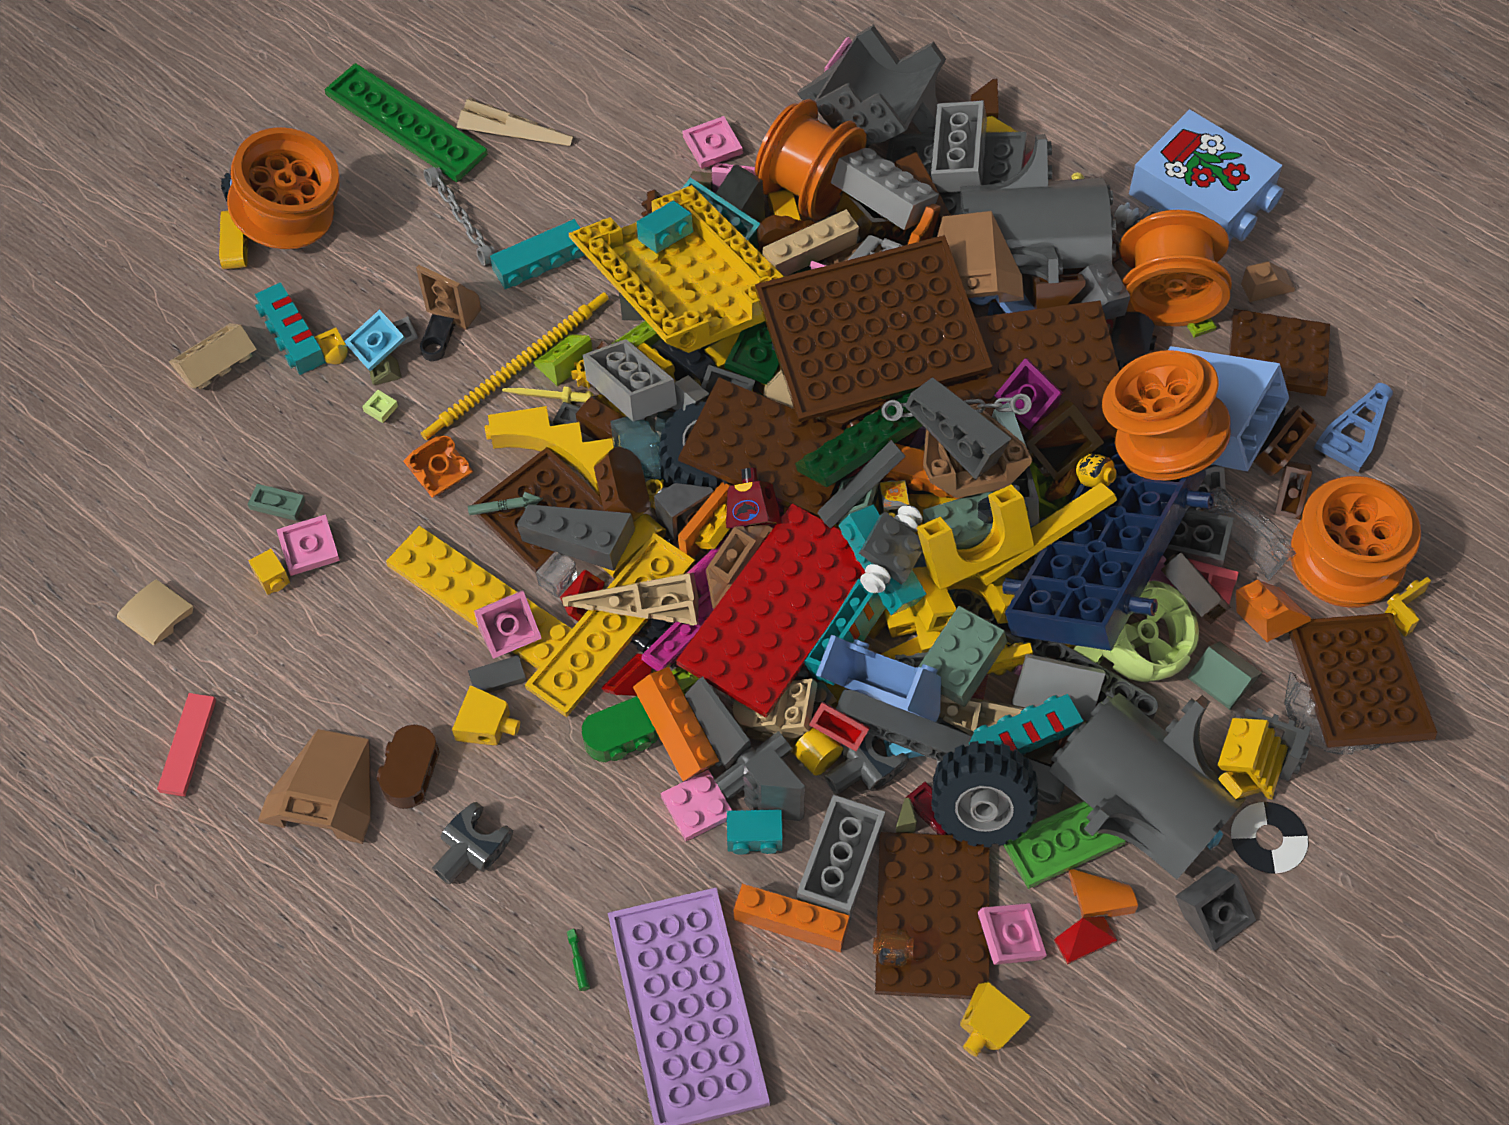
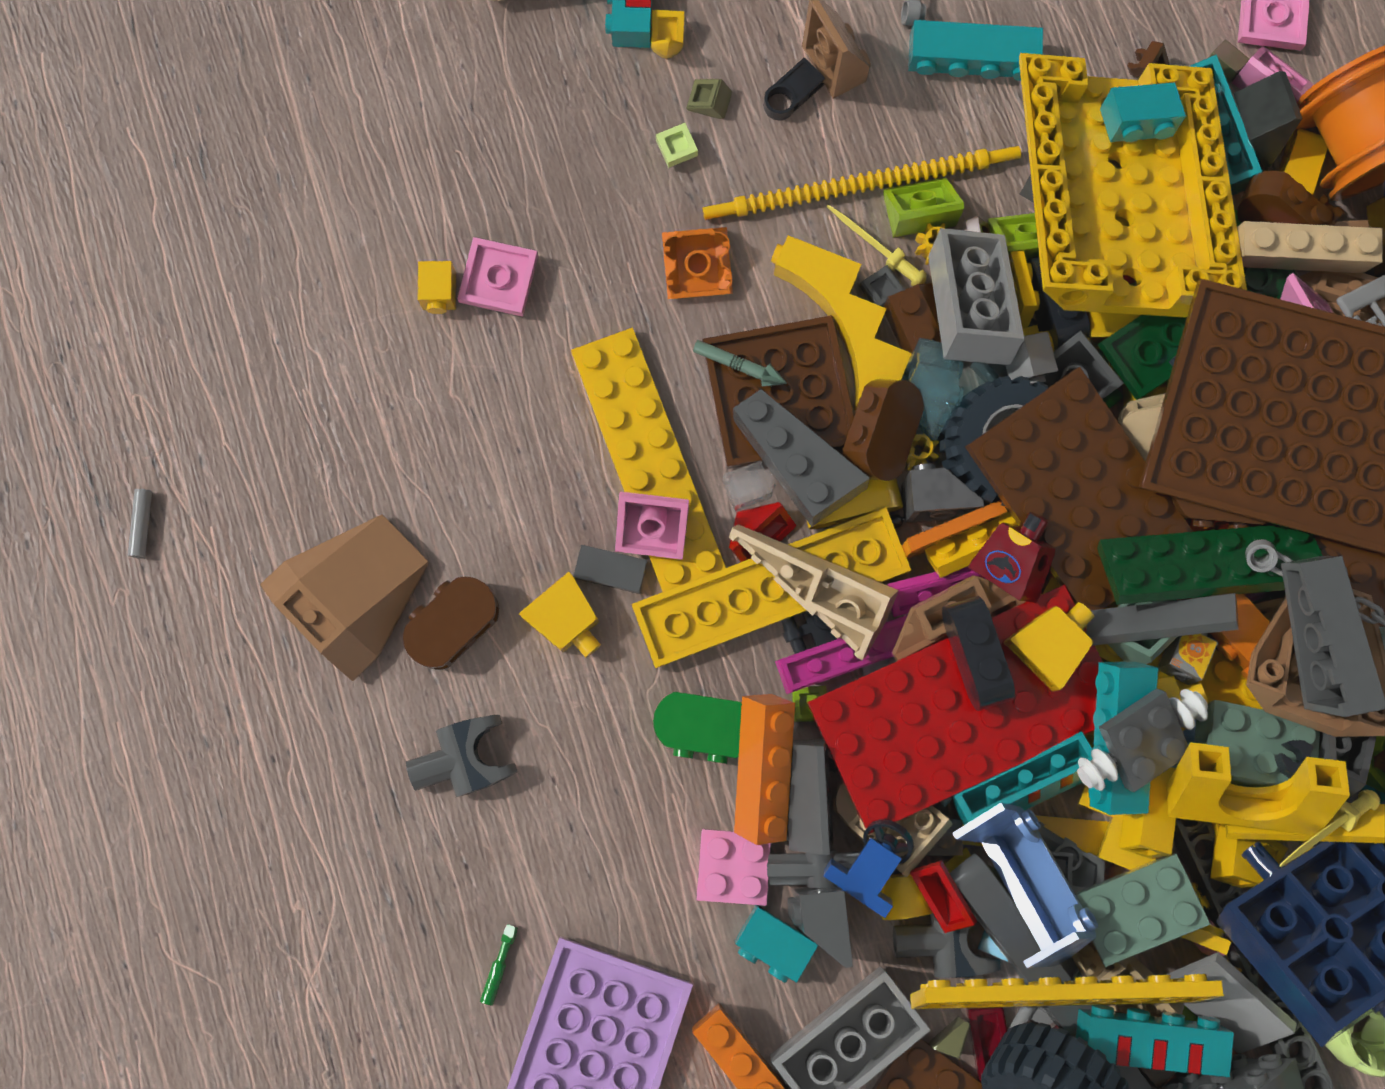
camera: 30 degrees right, 20 degrees up
(146, 833) = (139, 523): none -> light grey piece
(154, 612) = (289, 260): tan slope -> none
(186, 744) = (237, 443): coral tile -> none
(276, 502) = (494, 200): sand green plate -> none
(375, 340) = (718, 55): medium azure slope -> none
(406, 328) = (757, 59): light grey slope -> none
(627, 677) = (752, 667): red slope -> none
(761, 562) = (978, 653): none -> black brick
(781, 729) = (873, 866): none -> blue piece
(804, 534) = (1053, 644): none -> yellow torso
(946, 730) = (1051, 992): none -> yellow plate
(1041, 526) = (1345, 817): none -> light yellow sword

